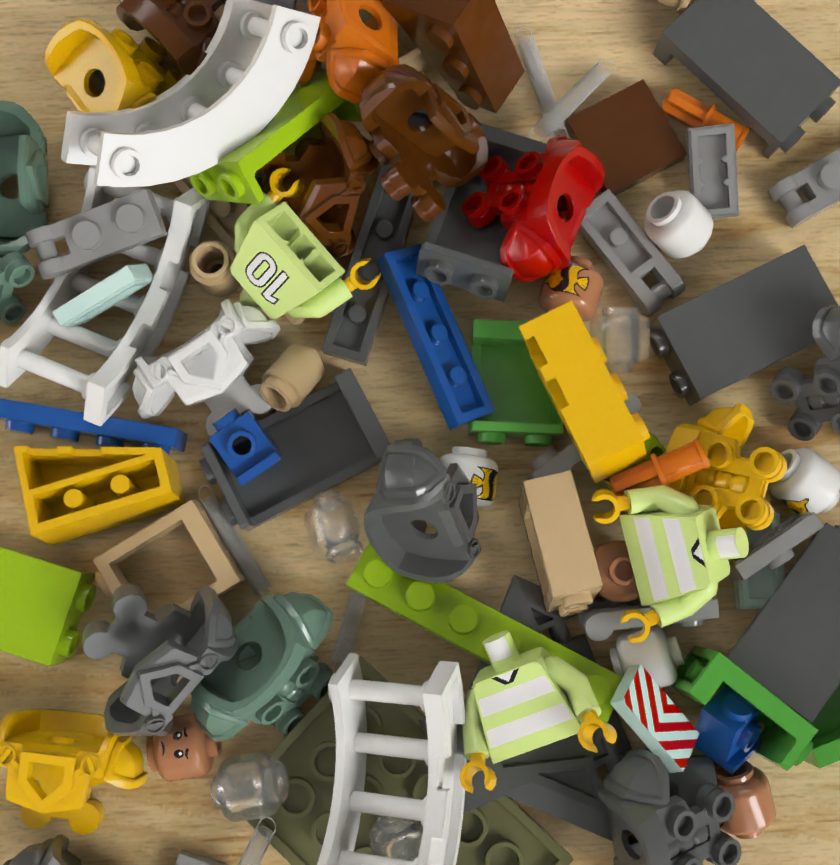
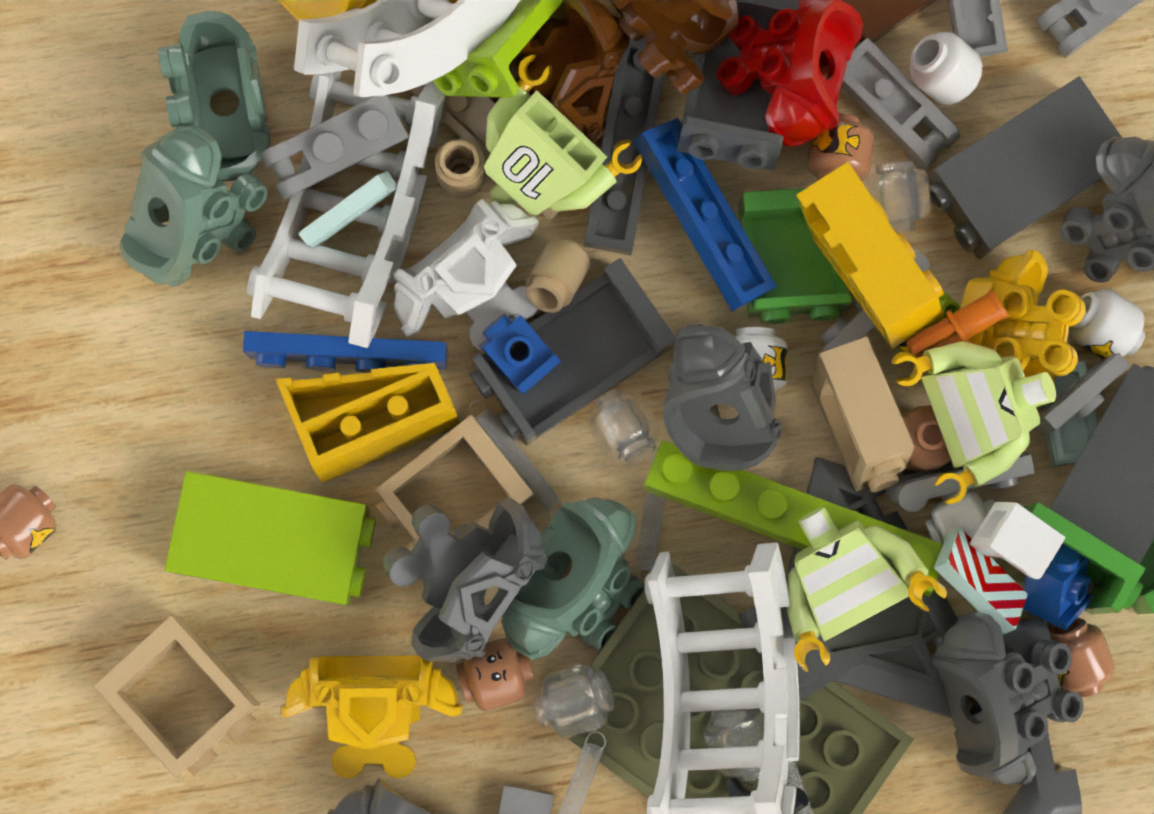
camera: 20 degrees left, 0 degrees up
(695, 686) = (1018, 538): none -> white panel

